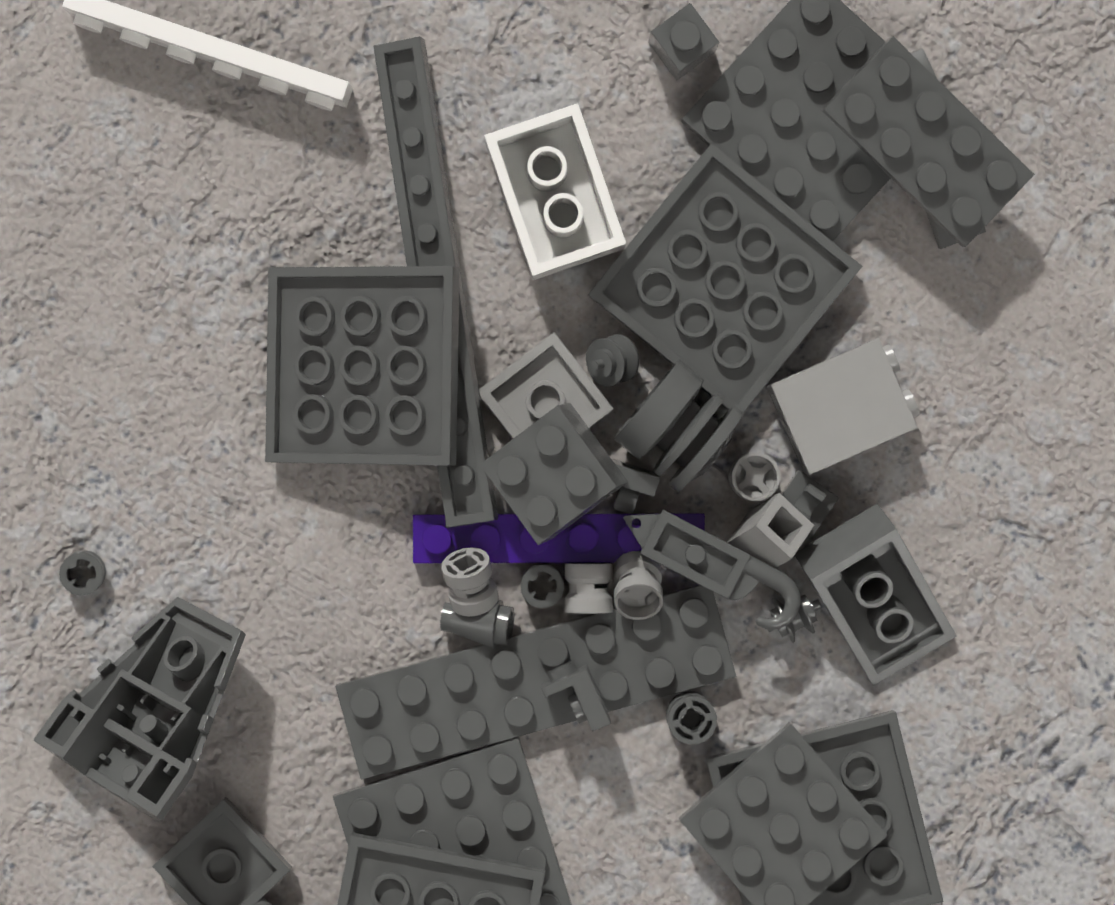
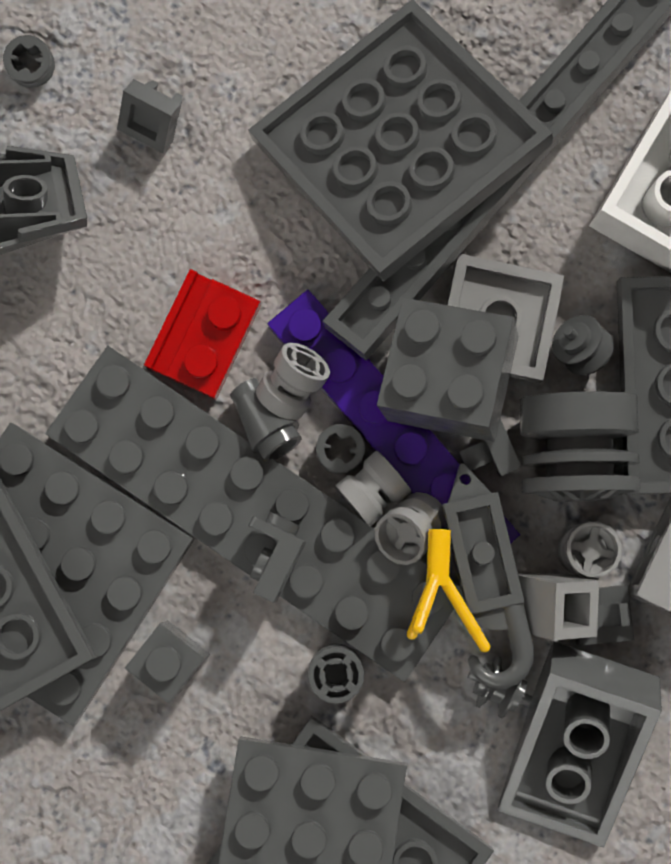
camera: 45 degrees right, 5 degrees down
(196, 522) = (149, 114): none -> dark grey tile
(382, 613) = (203, 334): none -> red plate
(587, 824) = (167, 661): none -> dark grey brick
(685, 597) = (438, 575): none -> yellow plant

